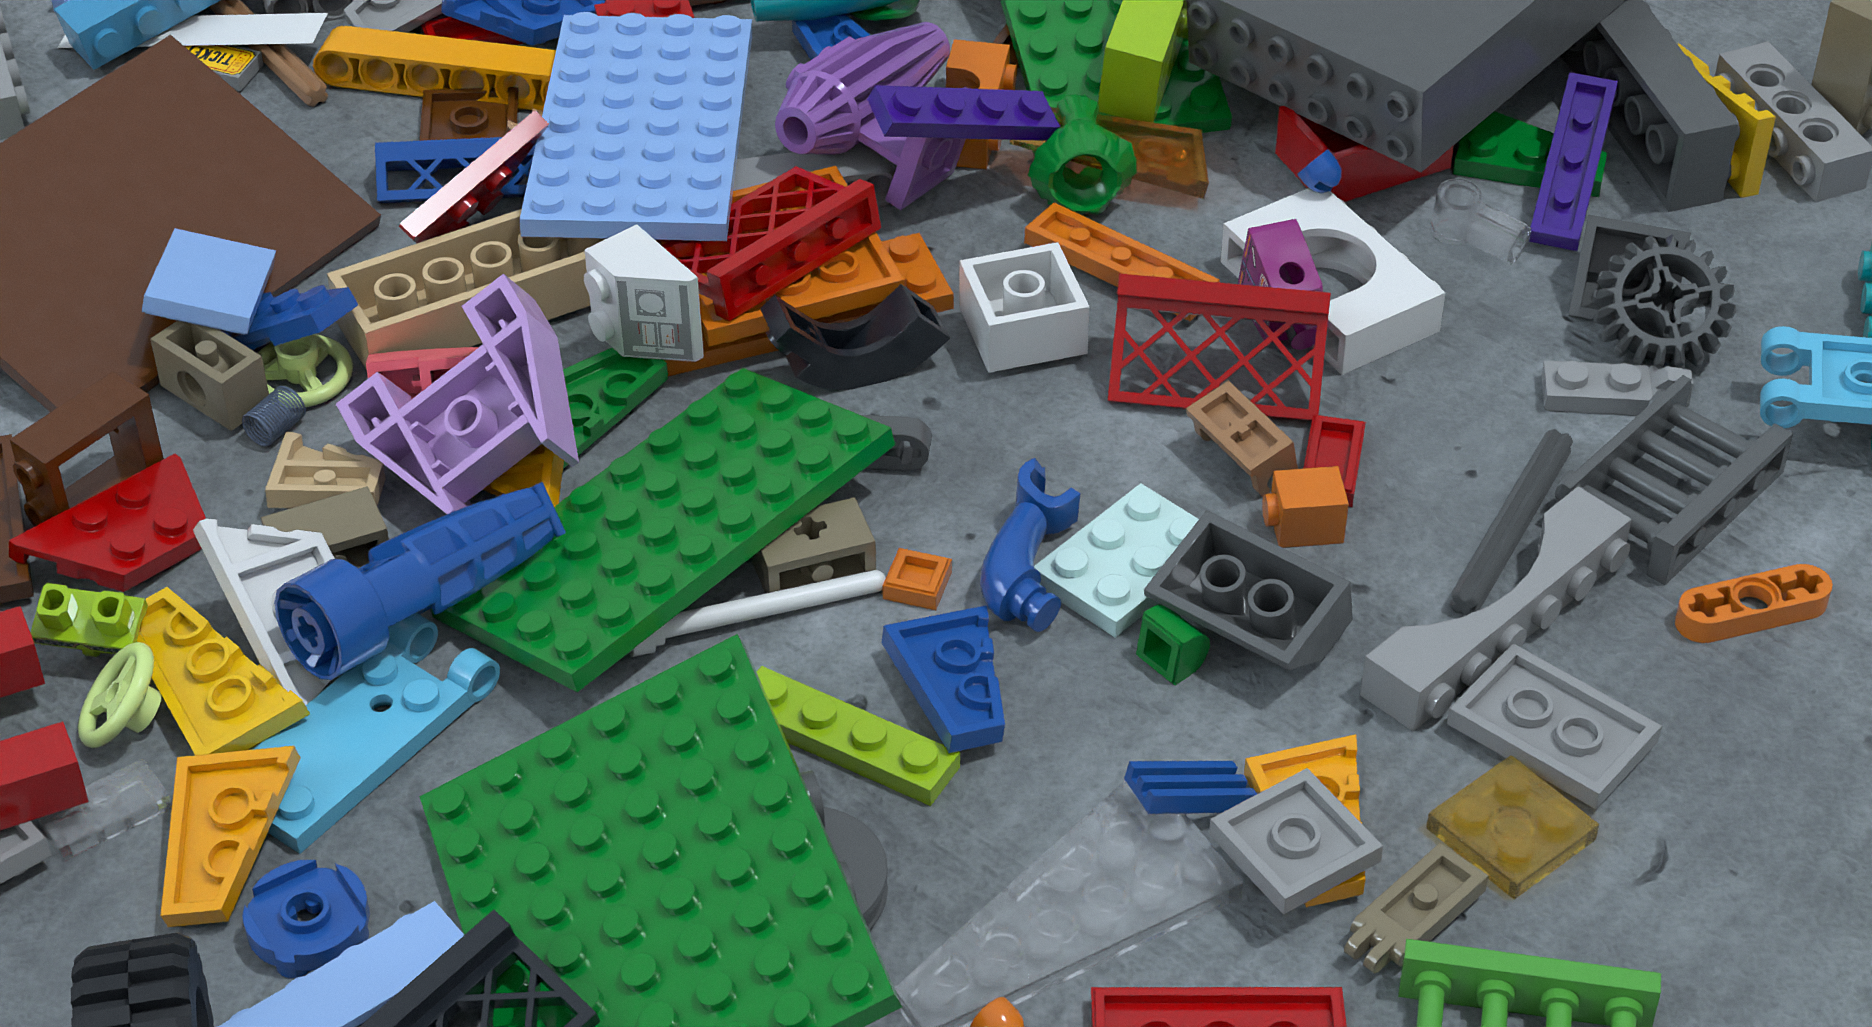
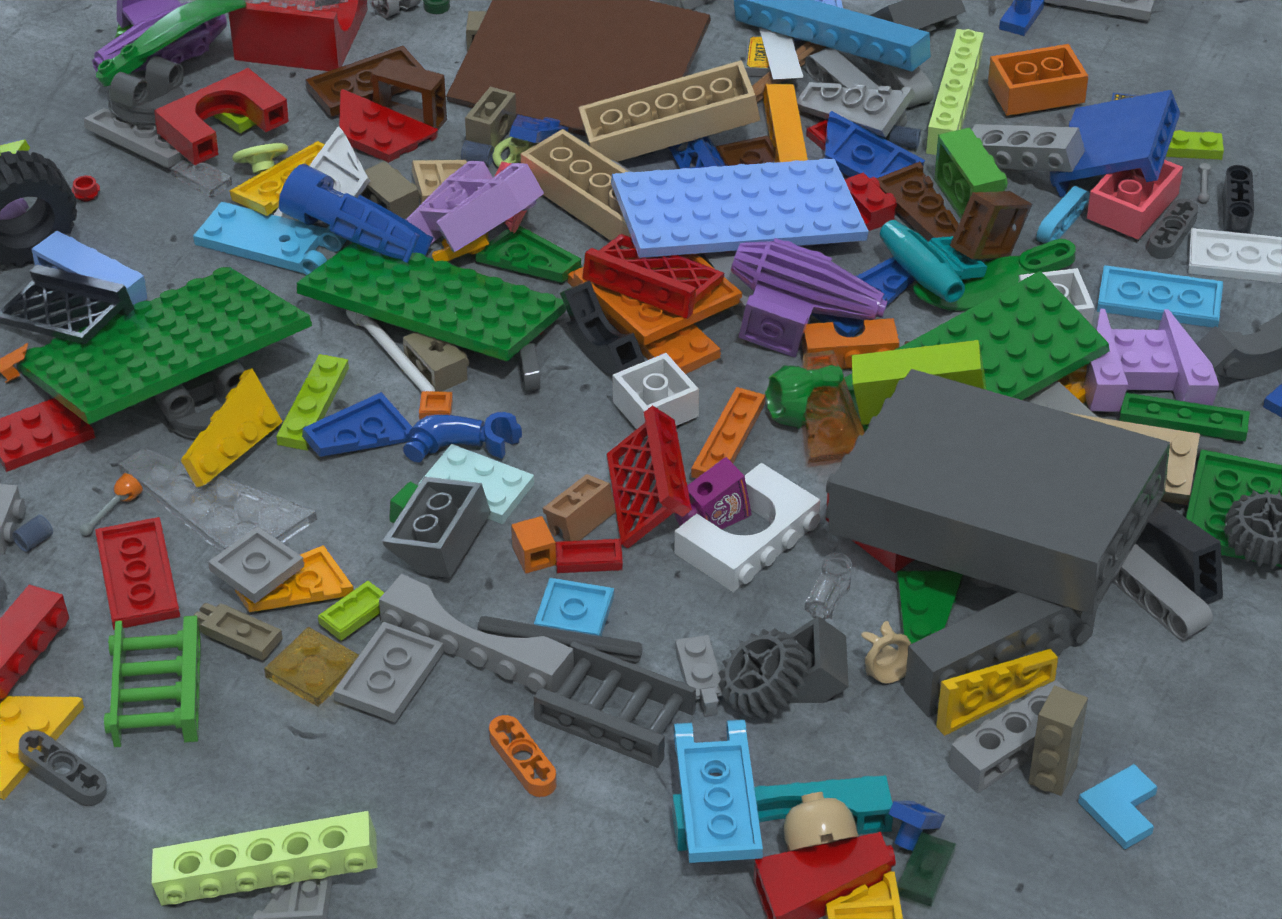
camera: 75 degrees right, 0 degrees up
(39, 998) = (85, 188): none -> red plate
(87, 619) = (301, 127): lime hips -> none
(209, 281) = (541, 92): light blue tile -> none
(218, 828) = (186, 207): light orange wing -> none
(305, 945) = (159, 255): blue plate -> none
(368, 141) = (671, 112): none -> tan brick
(476, 186) = (648, 158): wing -> none
(643, 298) = (581, 228): white slope -> none
(928, 825) = (232, 431): none -> yellow wing
(962, 113) = (773, 315): dark purple plate -> none
(1187, 786) = (302, 524): blue tile -> none
(1321, 173) = (814, 490): blue hinge -> none
(1401, 749) = (352, 611): none -> lime plate
(1447, 497) = (575, 606): none -> medium azure tile
(1573, 161) = (903, 615): dark purple plate -> none
(1631, 195) = (884, 661): none -> tan piece

